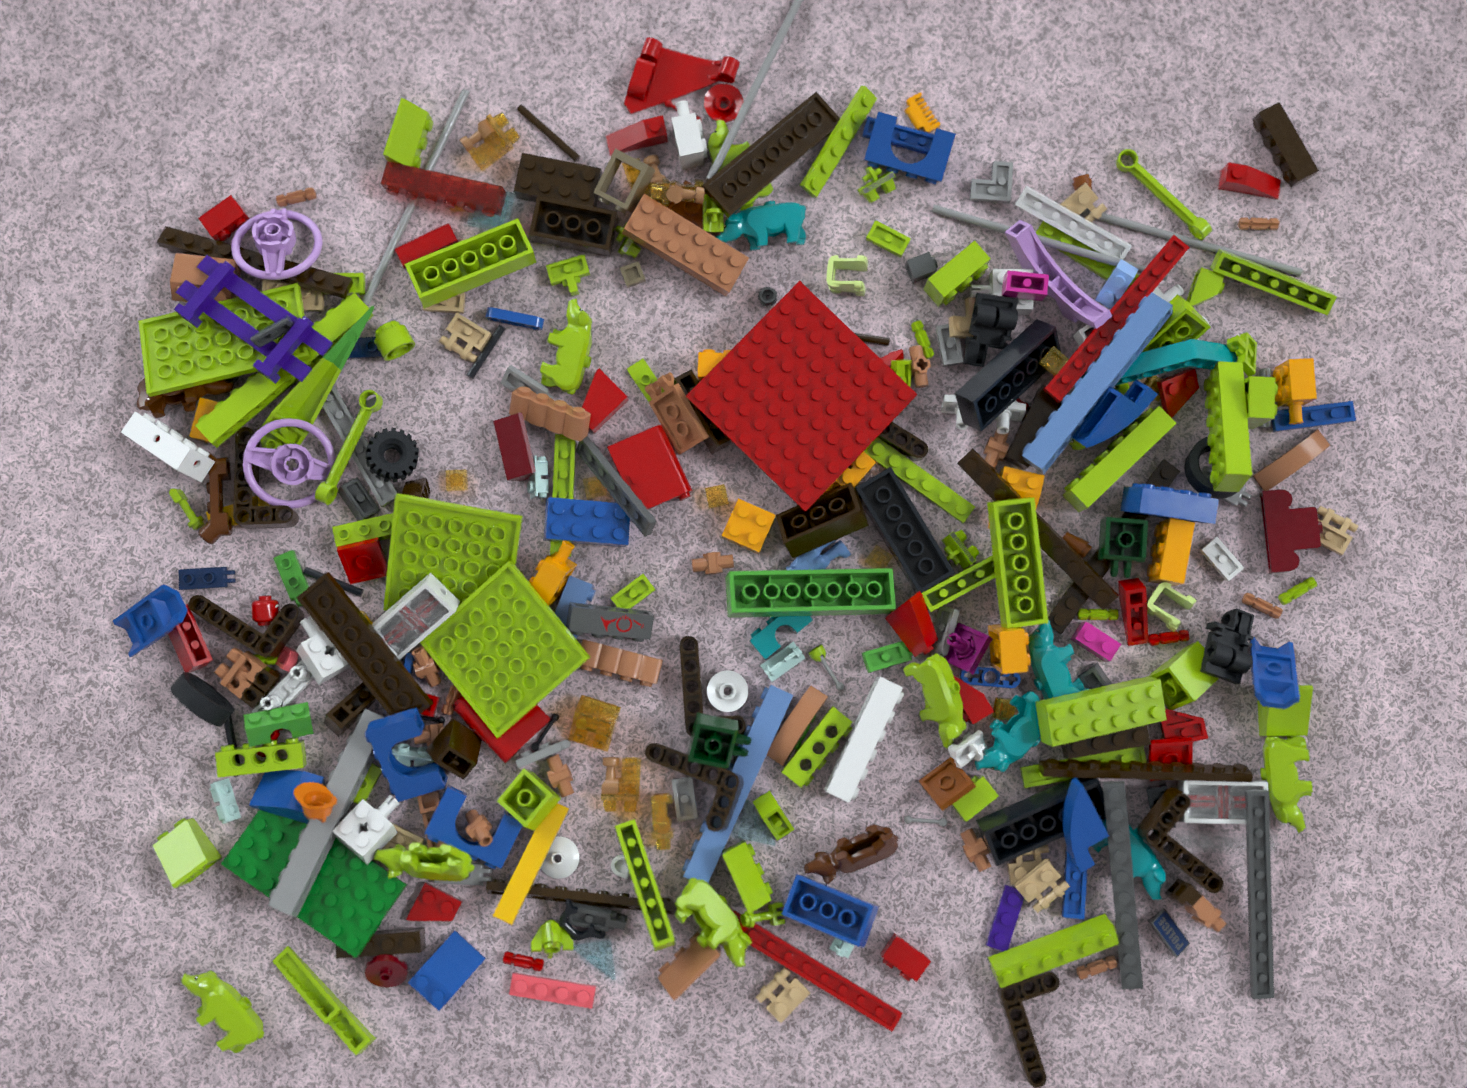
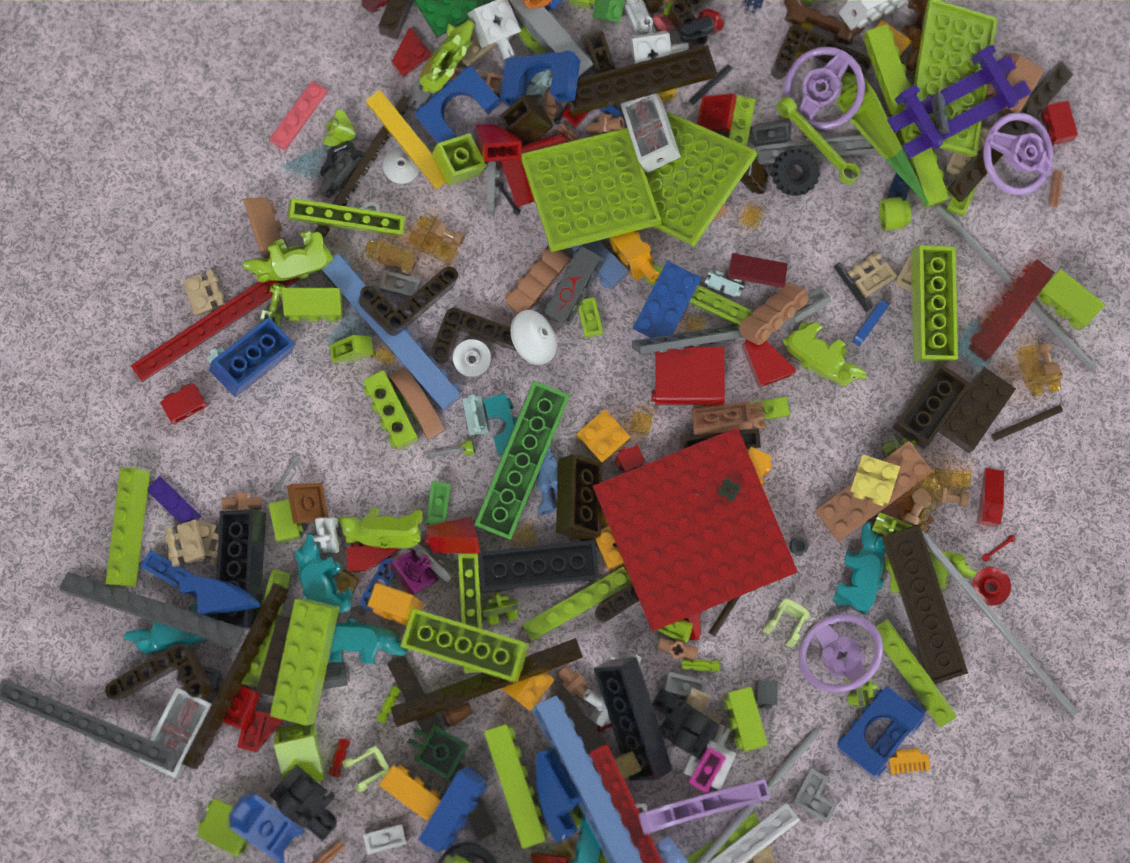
camera: 110 degrees right, 5 degrees down
(282, 617) = (696, 29): none -> black arm
(291, 575) = (731, 54): bright green hinge -> none
(426, 244) = (967, 278): red tile -> none
(446, 970) = (354, 41): blue slope -> none
(478, 828) = (455, 111): nougat axle -> none
(495, 768) = (497, 143): none -> red slope
(523, 961) = (332, 103): red axle -> none
(560, 775) = (466, 193): nougat axle -> none
(568, 272) = (892, 385): lime hinge -> none
(594, 723) = (496, 239): clear yellow slope -> none
(632, 274) = (867, 438): dark tan plate -> none
(638, 189) = (940, 471): dark tan window -> none
(669, 74) = (1038, 552): red panel -> none
(678, 244) = (874, 480): none -> light yellow plate
(680, 638) = (533, 337): none -> white dish
(688, 137) = (971, 538): white brick -> none
(712, 563) = (585, 394): nougat axle -> none
(725, 735) = (434, 325): dark green hinge -> none
(757, 372) = (734, 489): none -> plate
(758, 491) = (629, 459): none -> red brick
(765, 778) = (384, 356): none -> clear yellow plate
(852, 221) = (838, 648): none -> lavender piece
(854, 853) = (287, 403): reddish brown animal -> none
(863, 739) = (378, 449): white brick -> none
(888, 238) = (798, 683): lime plate -> none
(1022, 1023) = (83, 474): dark brown beam -> none
(1095, 641) = (366, 689): dark pink brick -> none
(1096, 967) = (95, 559): nougat axle -> none
(1134, 610) = (376, 736): red slope -> none
(1169, 932) = (92, 635): slope -> none
(1196, 905) = (94, 669): hips -> none
(1215, 841) = (146, 714): clear plate -> none
(1283, 780) = (170, 793): lime animal -> none

